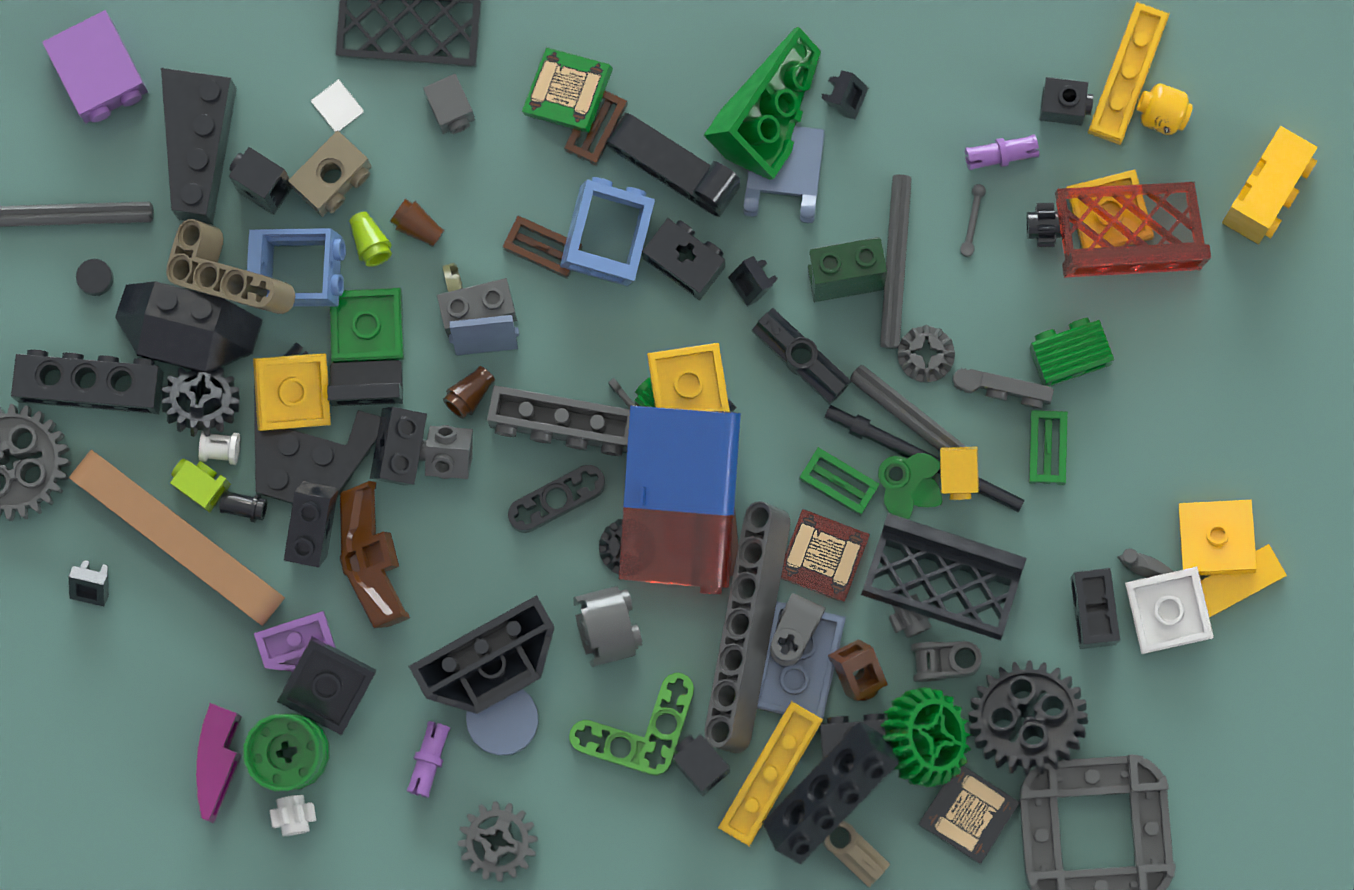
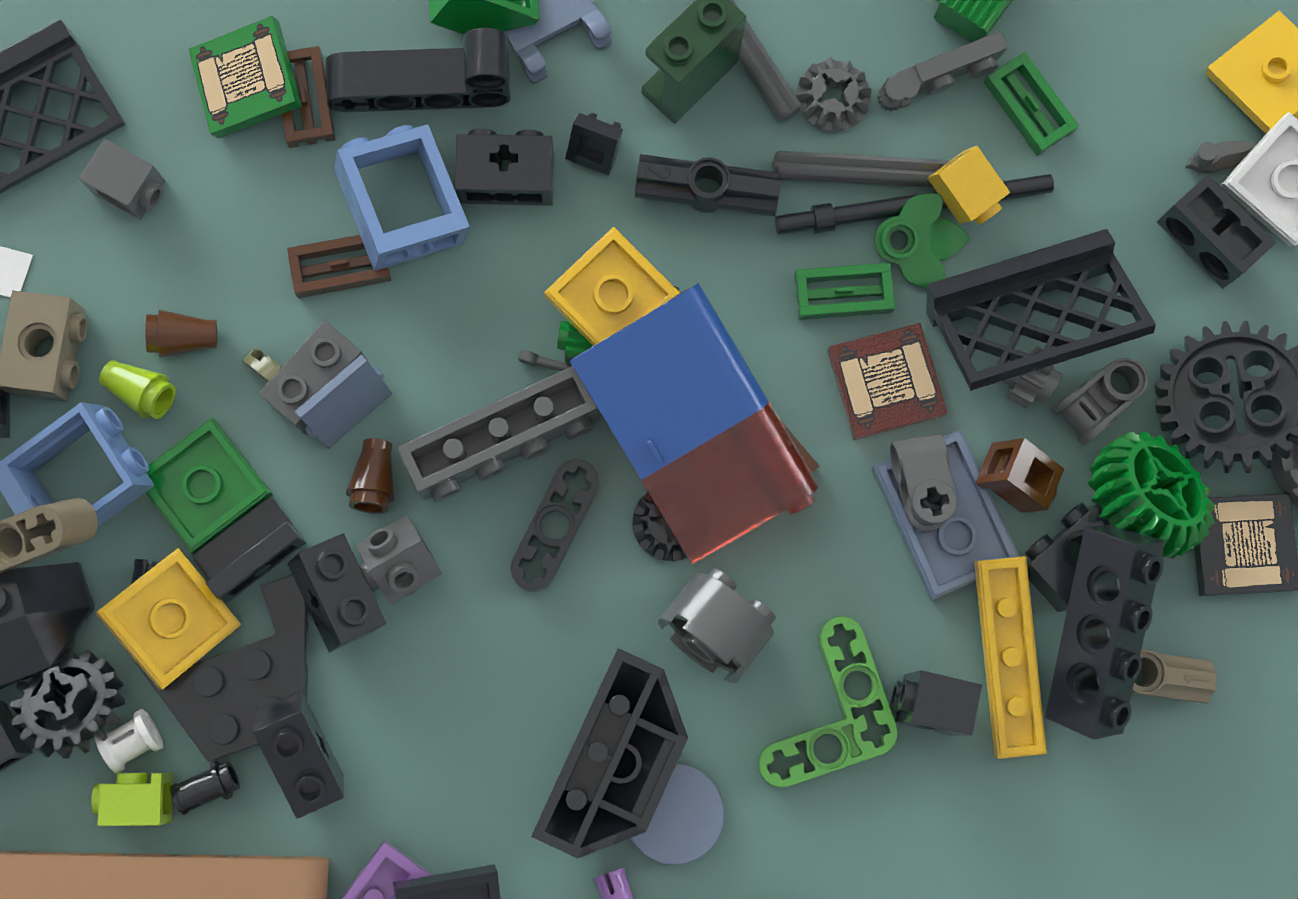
camera: 50 degrees left, 0 degrees up
(368, 556) = (392, 741): reddish brown plate -> none
(748, 645) = (889, 528): dark grey beam -> none

